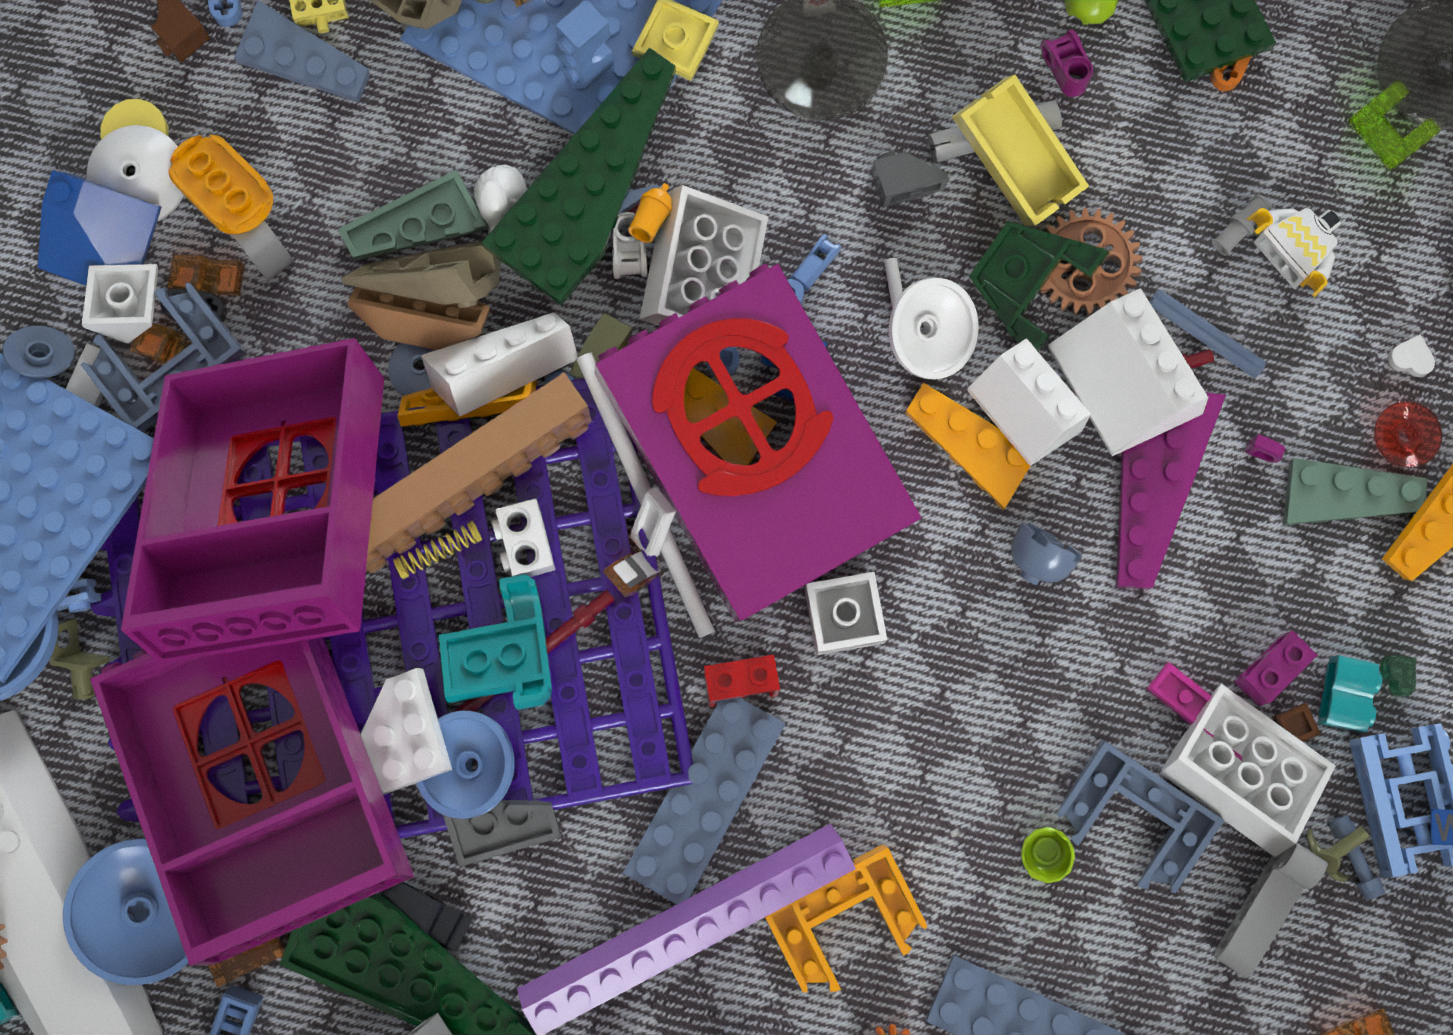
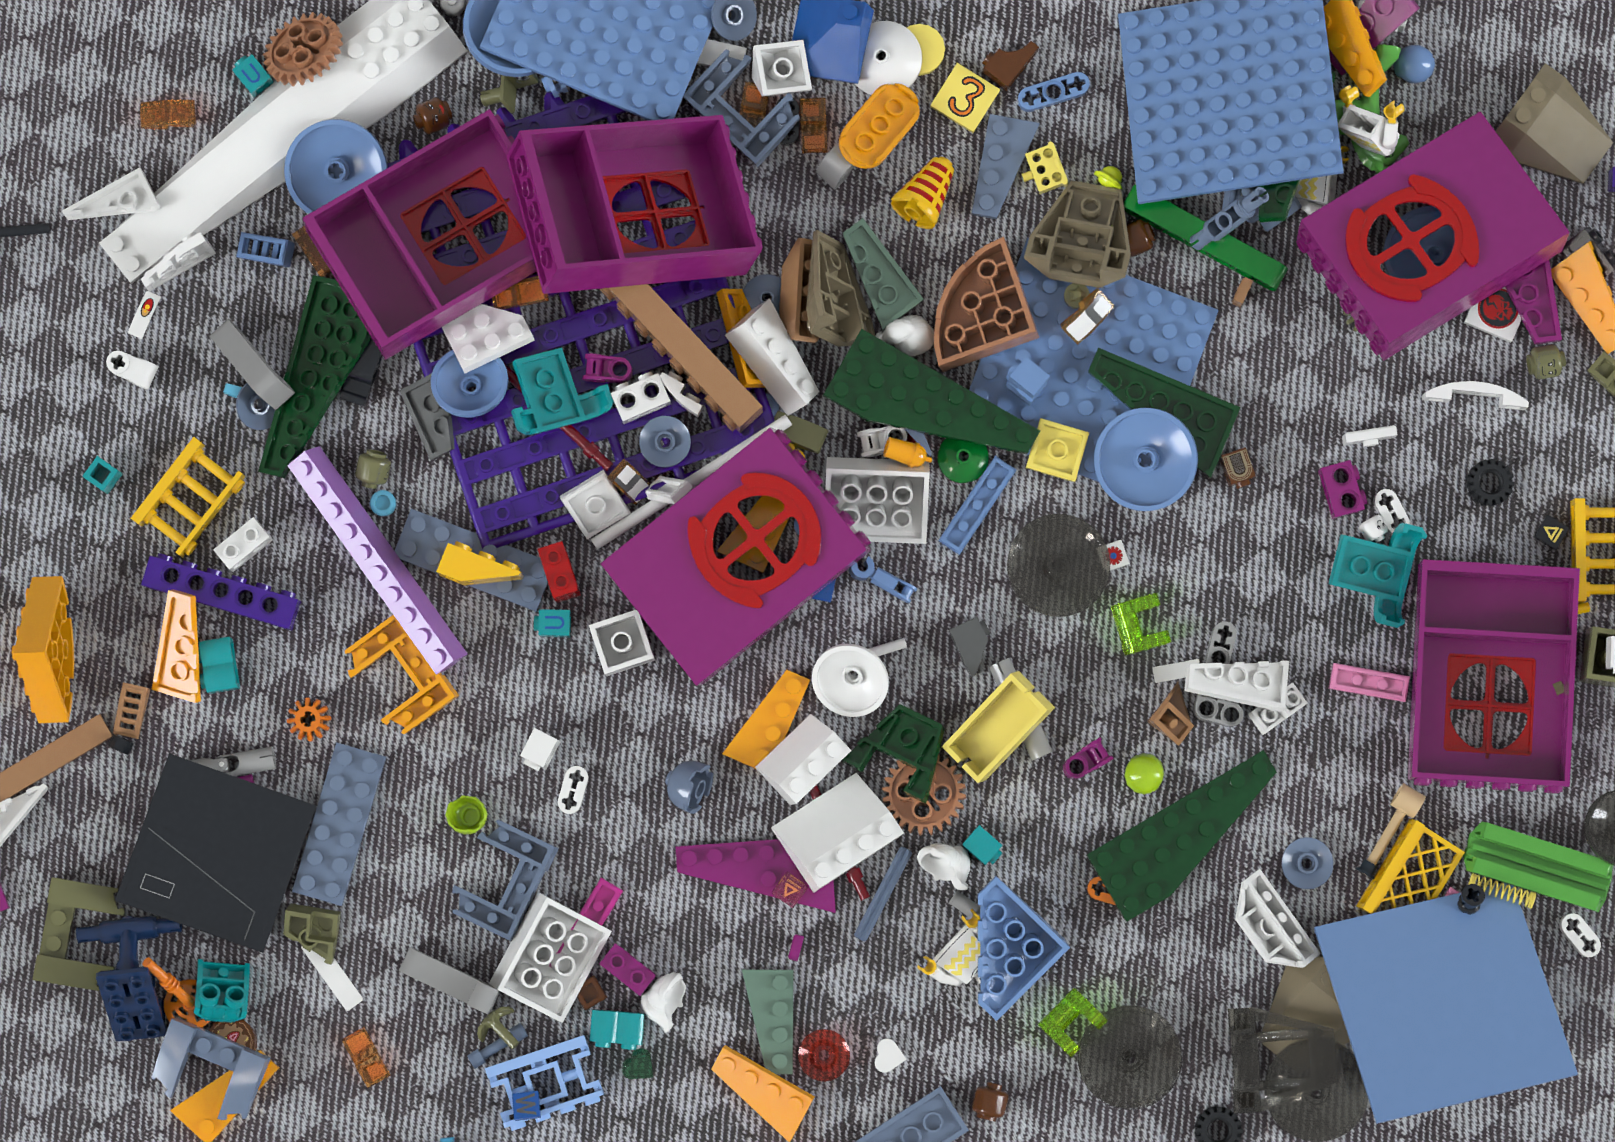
camera: 85 degrees right, 5 degrees up
(91, 767) = (432, 115): none -> reddish brown head
(208, 85) = (965, 98): none -> light yellow tile
(322, 147) = (925, 193): none -> yellow cone
(356, 676) = (521, 294): none -> clear orange slope
(403, 570) = (606, 314): light yellow piece -> none
(477, 581) = (605, 369): none -> magenta piece
(482, 93) = (982, 309): none -> nougat brick
(518, 491) = (675, 387): none -> white slope
(560, 918) = (373, 468): none -> olive head
(584, 499) = (661, 428): none -> sand blue dish
(608, 911) = (383, 503): none -> medium azure tile
(655, 623) = (595, 504): none -> white tile
(671, 170) = (959, 470): none -> green dish
(719, 801) = (470, 568): none -> yellow slope
(729, 148) = (977, 505): none -> medium blue tile
(805, 702) = (553, 623): none -> teal brick
(975, 742) = (539, 750): none -> white brick
(1033, 701) = (567, 788): none -> white beam
(1161, 201) = (983, 846): none -> teal brick
(1180, 246) = (946, 863): none -> white hair
(1193, 445) = (789, 889): none -> clear pink tile
(1302, 175) = (1014, 947): none -> medium blue slope
(1318, 629) = (663, 999): none -> white hair

